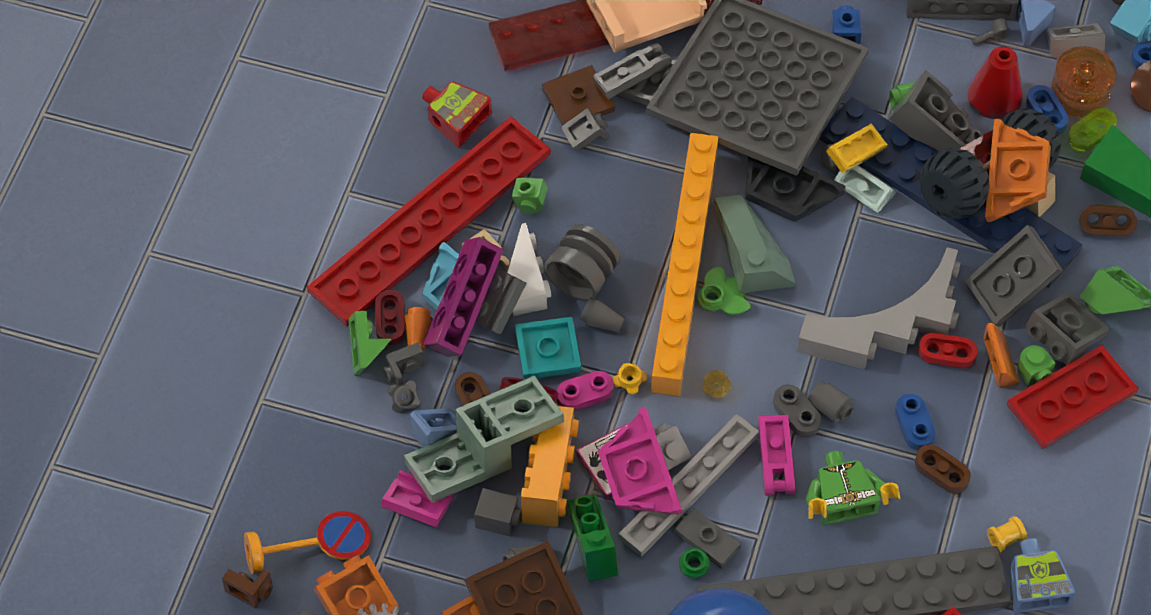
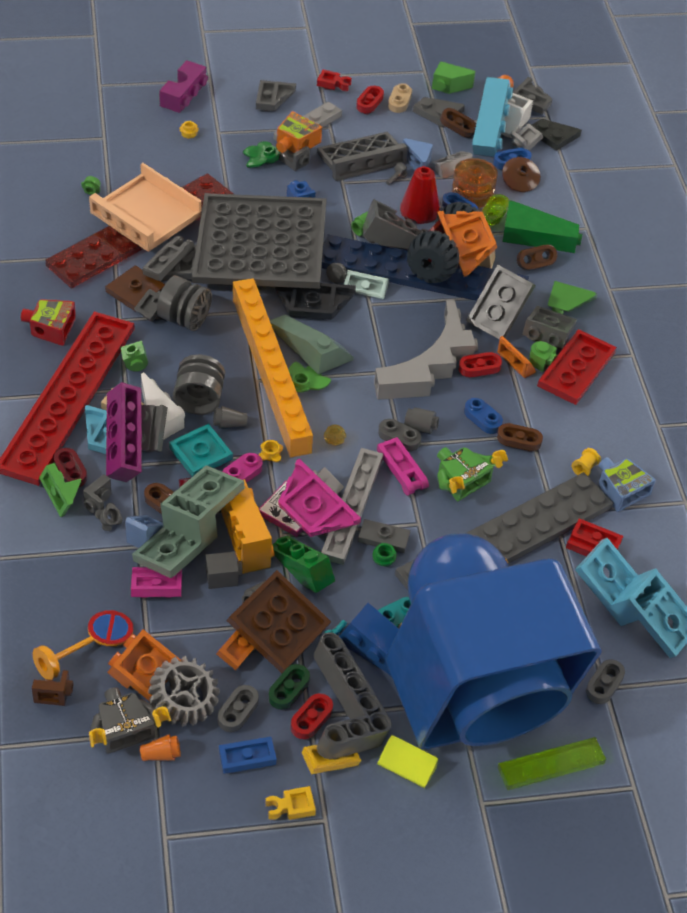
camera: 30 degrees left, 10 degrees down
(417, 325) = (94, 464): orange cone -> none
(619, 143) = (184, 303): none -> dark grey wheel
(857, 148) = (352, 259): yellow plate -> none

